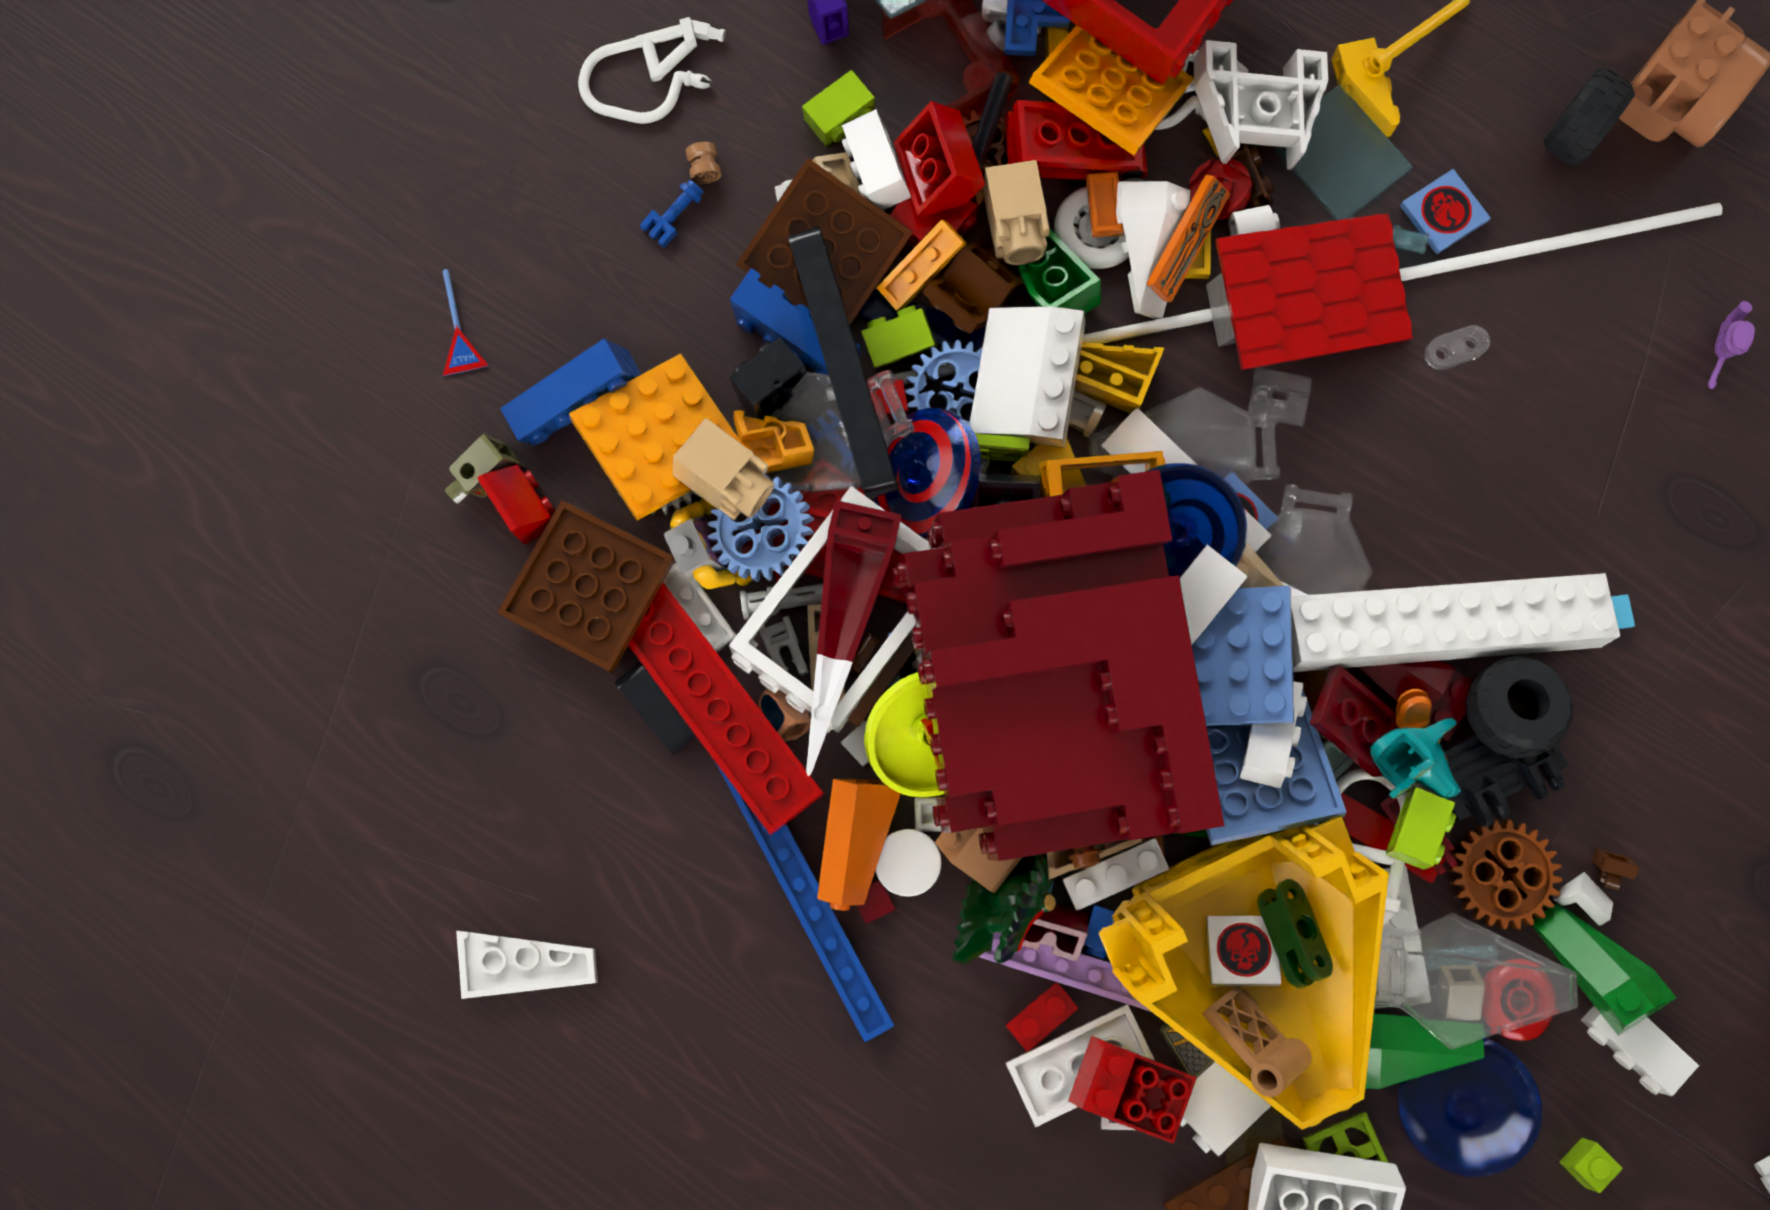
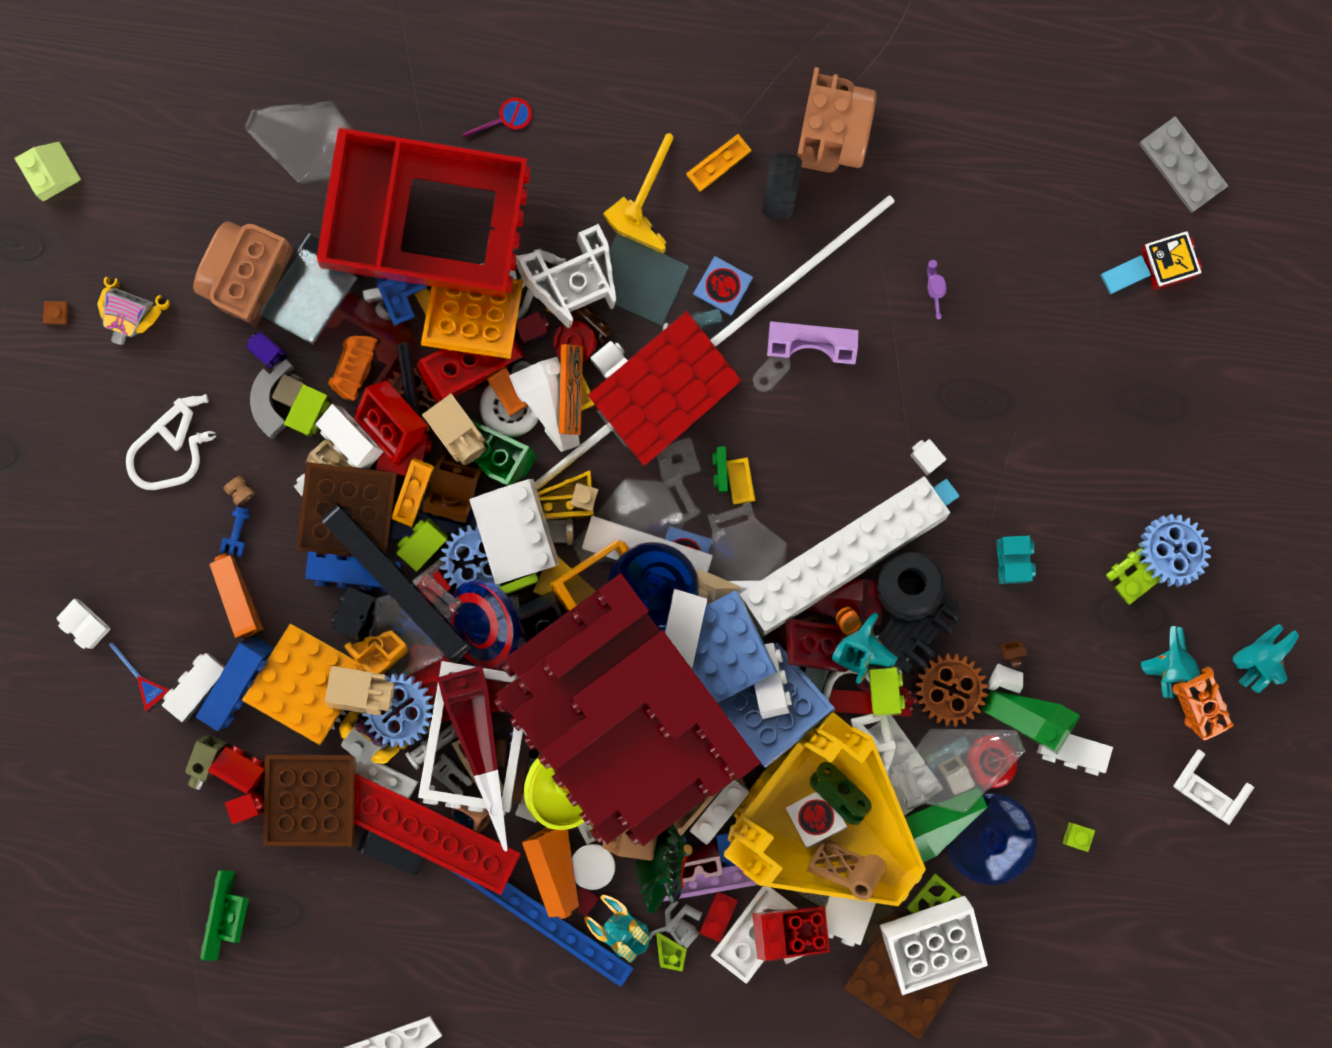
camera: 30 degrees left, 5 degrees up
(400, 680) = (225, 916): none -> green bracket
(423, 228) = (82, 624): none -> white brick
(500, 552) = (245, 807): none -> red brick
(514, 373) = (193, 687): none -> white brick
(629, 289) = (235, 597): none -> orange slope
(792, 65) = (262, 402): none -> light grey arch
(827, 69) = (288, 389): none -> dark tan brick
(903, 967) = (621, 931): none -> teal piece
(925, 79) = (353, 366): none -> orange piece
(953, 1033) = (670, 953): none -> lime piece
(982, 1008) = (681, 930): none -> light grey piece
(1085, 857) = (695, 813): dark orange plate -> none
(1140, 376) = (584, 497): none -> tan plate
(1174, 144) = (532, 328): none -> dark red brick
(1326, 448) = (719, 460): none -> green plate
(1349, 463) = (740, 481): none -> yellow tile
(1514, 59) = (718, 162): none -> light orange plate
(1561, 348) = (835, 342): none -> lavender arch
(1616, 552) = (927, 456): none -> white brick
(1677, 744) = (1014, 560): none -> teal brick

